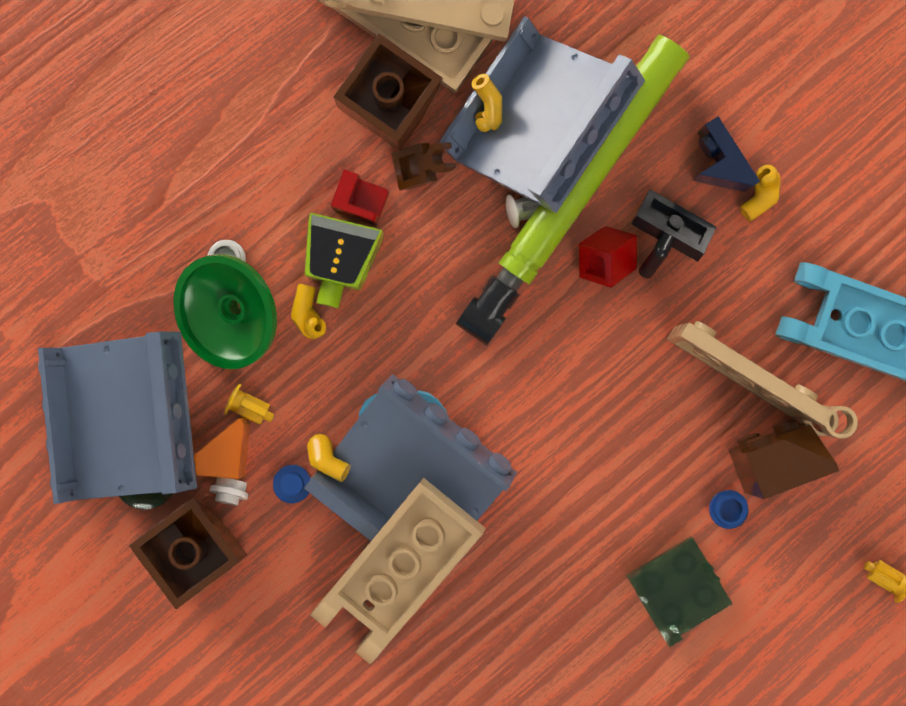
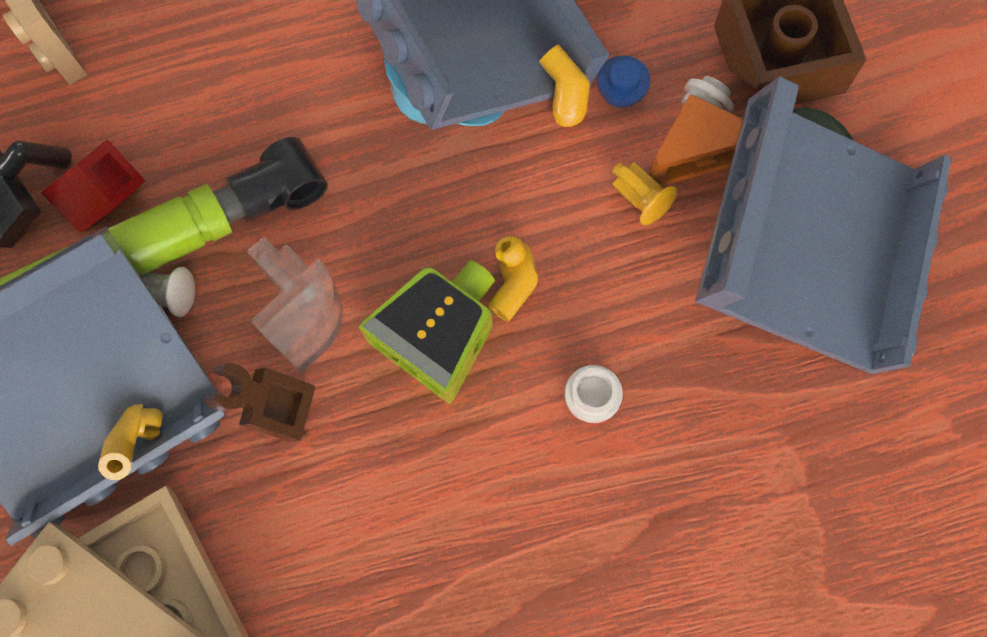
camera: 150 degrees left, 15 degrees down
(210, 315) = (621, 311): green dish -> none
(359, 198) = (374, 395): red panel -> none
(388, 91) = (253, 519): reddish brown slope -> none
(424, 230) = (307, 311): none -> clear brick

